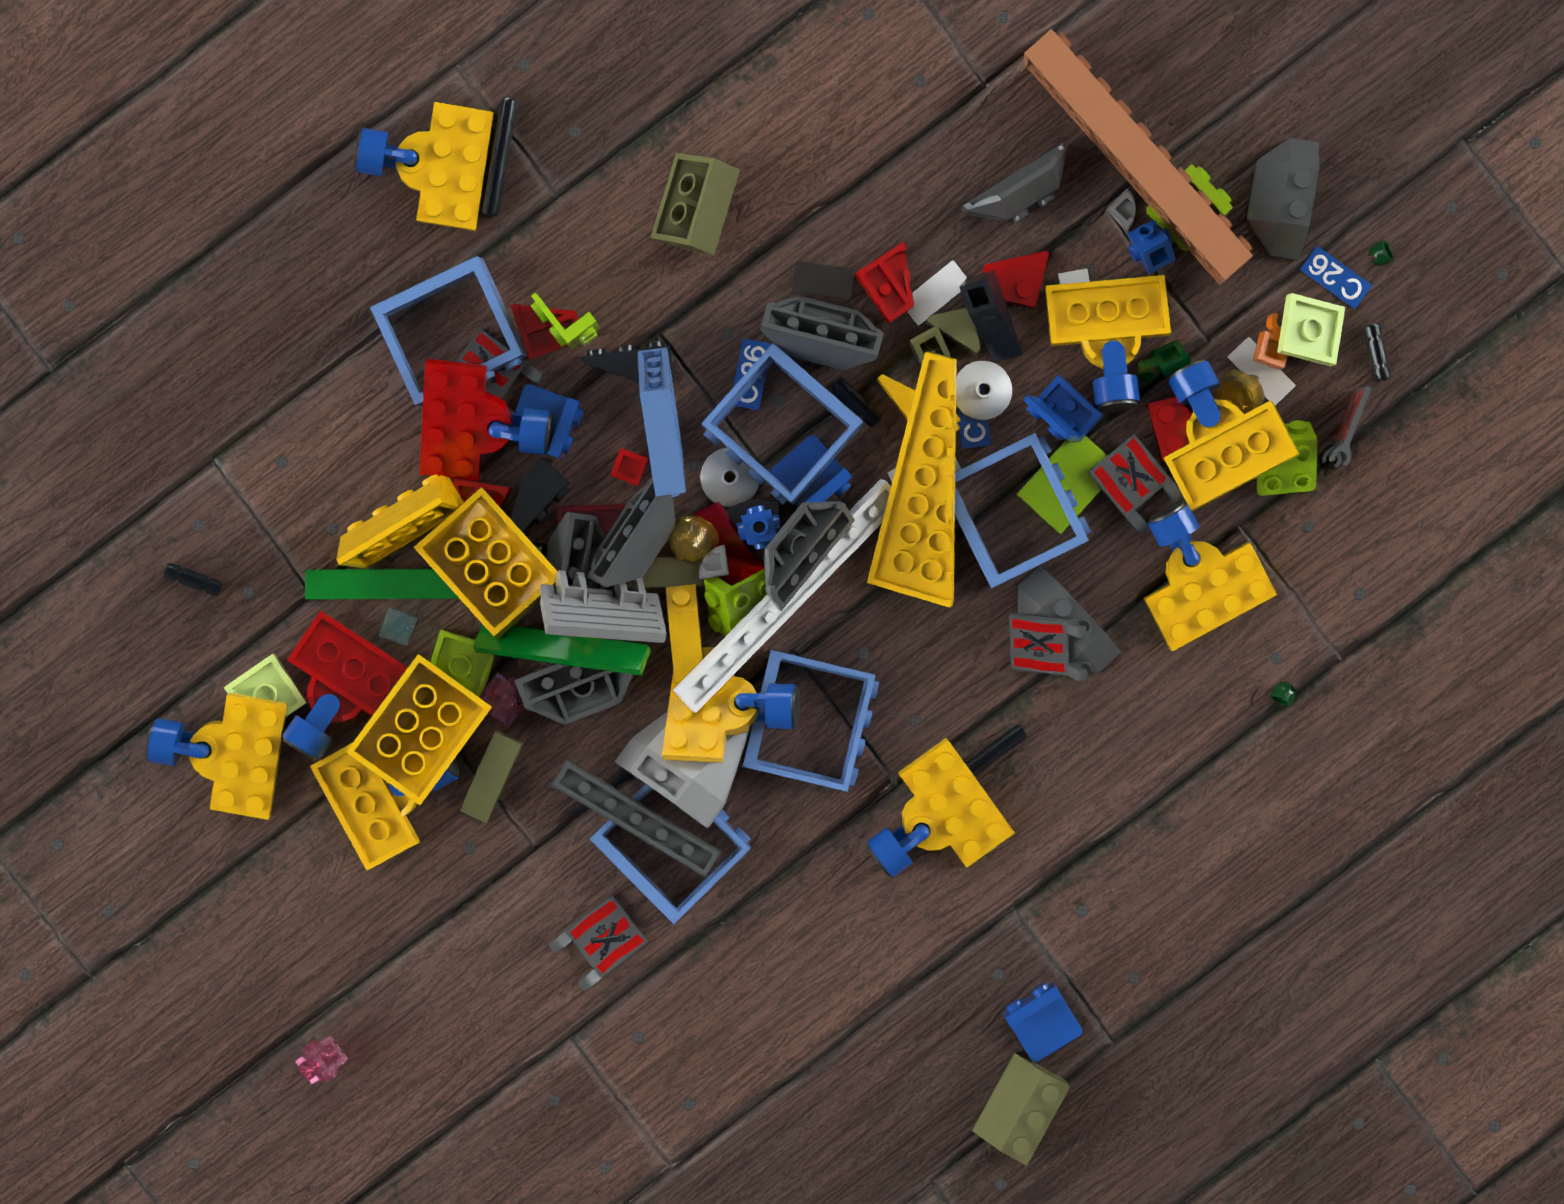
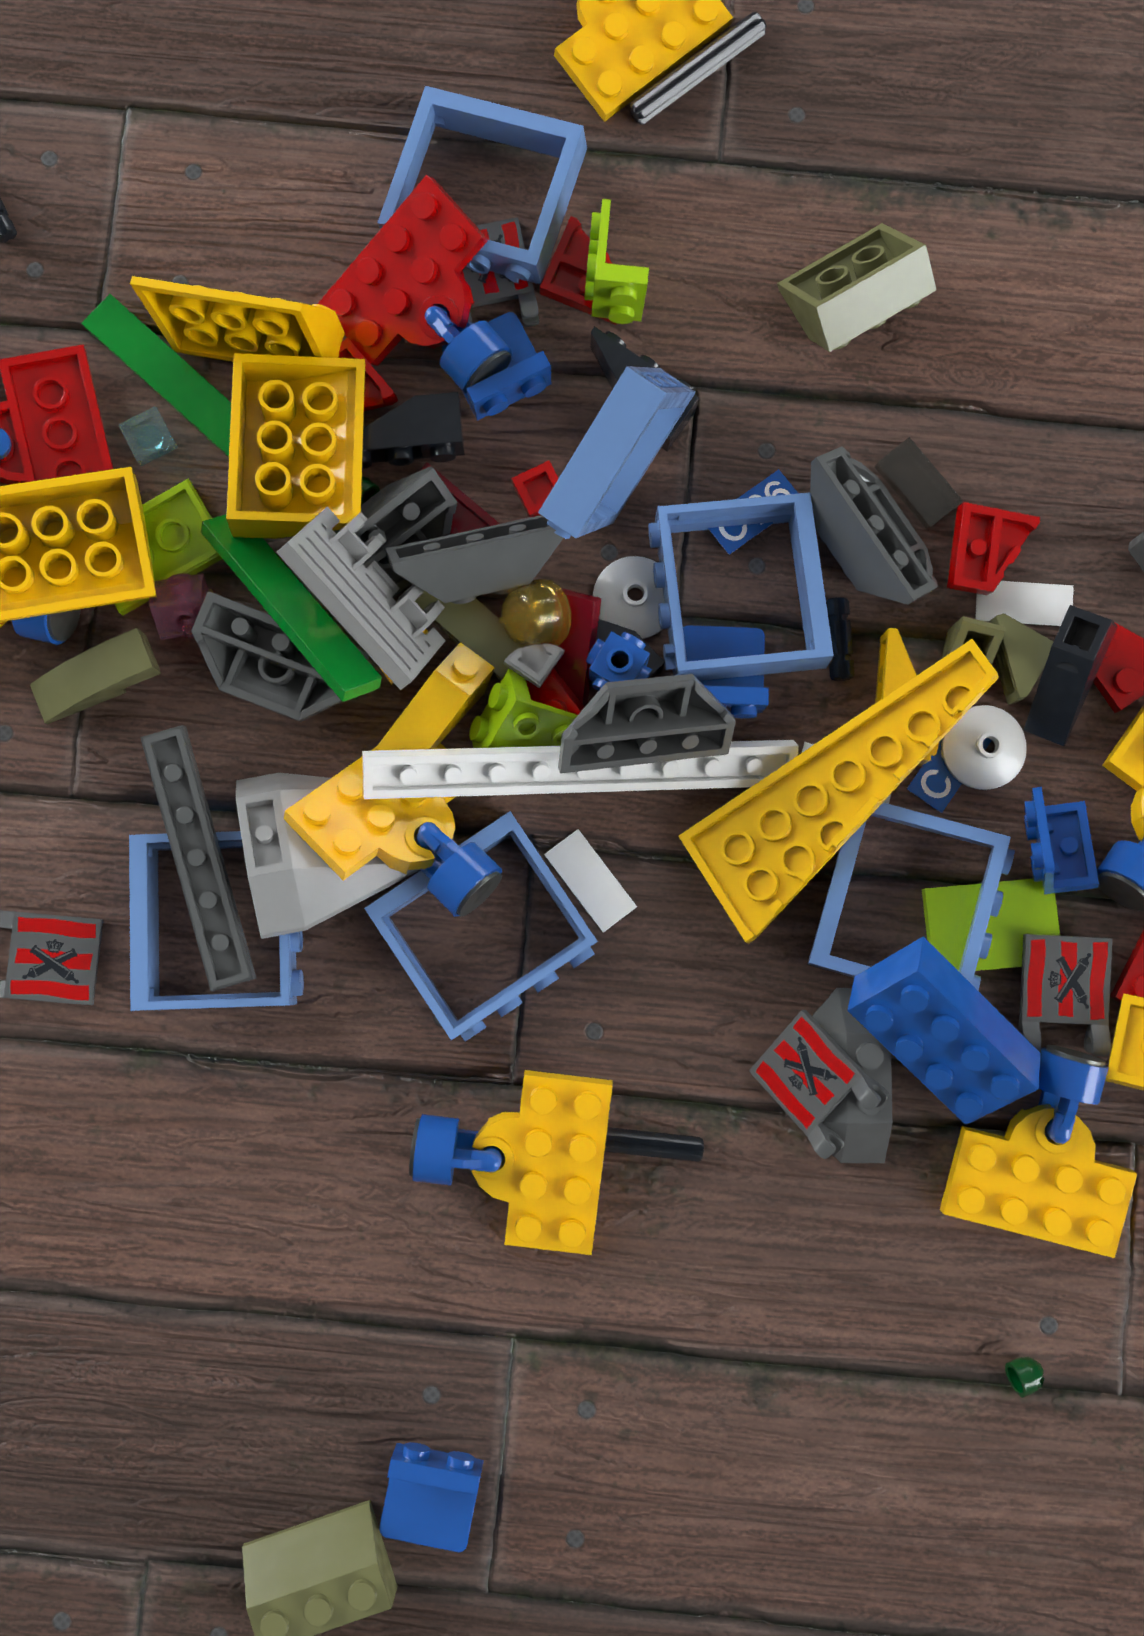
camera: 40 degrees right, 5 degrees down
(842, 645) = (590, 880): none -> white sticker
(1088, 562) = (945, 1031): none -> blue brick

